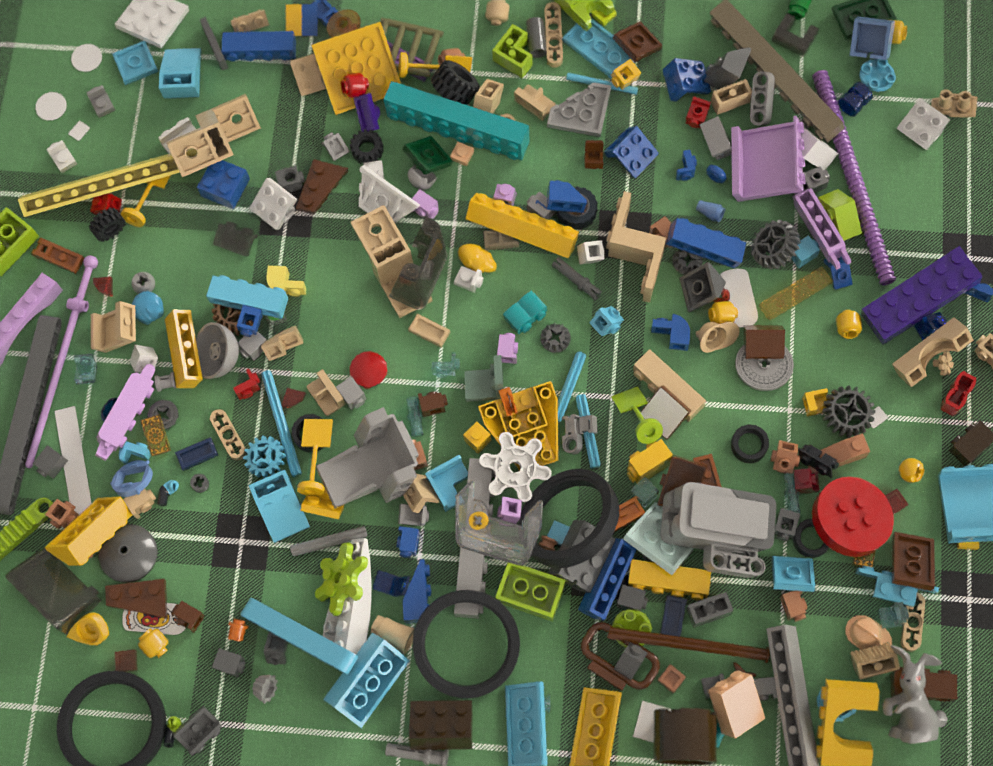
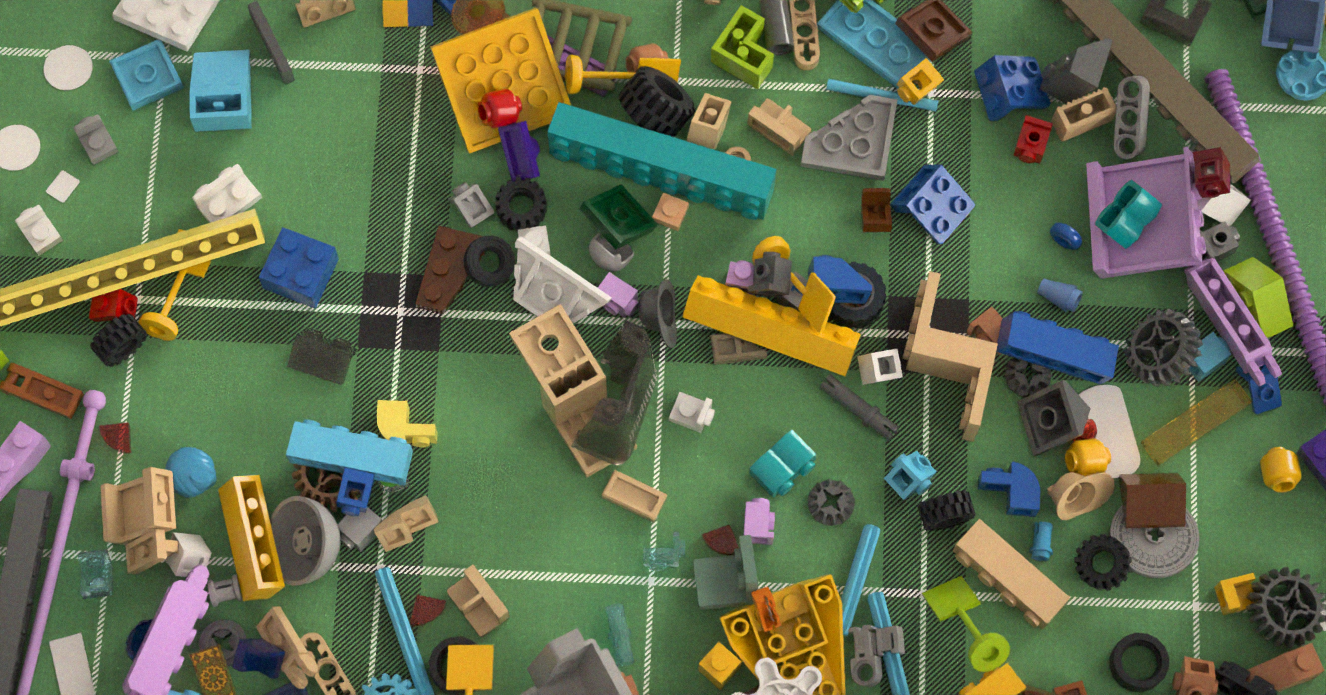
camera: 10 degrees left, 0 degrees up
(119, 354) = (148, 551): none -> tan hinge
(137, 282) = (170, 428): light grey piece -> none
(184, 423) = (258, 656): none -> clear blue panel
(202, 418) = (278, 631): none -> tan hinge
(213, 135) = (281, 199): tan bracket -> none
(247, 388) = (354, 598): red bracket -> none
(259, 45) = (342, 45): blue brick -> none
(273, 204) = (380, 300): white plate -> none
(287, 173) = (394, 252): dark grey brick -> none
(307, 74) = (422, 88): tan bracket -> none
(333, 183) = (505, 255): none -> black tyre
(351, 393) = (519, 601): light grey brick -> none
(368, 369) = (542, 561): red dish -> none
(432, 403) = (646, 613): reddish brown brick -> none
(451, 215) = (658, 311): none -> dark grey piece
(476, 258) = (702, 379): yellow arm -> none
(483, 359) = (721, 540): none -> clear red tile
(522, 193) = (771, 275): none -> dark grey brick
(524, 182) = (816, 297): none -> yellow piece
(628, 343) = (946, 510): none -> black tyre
(667, 410) = (1010, 614): white tile -> none
(689, 164) = (1024, 223): blue bracket -> none
(690, 366) = (1041, 541): none -> dark azure pin
(716, 138) = (1063, 180): light grey hinge -> none
(738, 386) = (1115, 575): none -> black tyre
(756, 158) = (1128, 214): none -> teal brick
(811, 132) = (1211, 172): none -> dark red window
(854, 100) = (1270, 116): clear blue wheel -> none

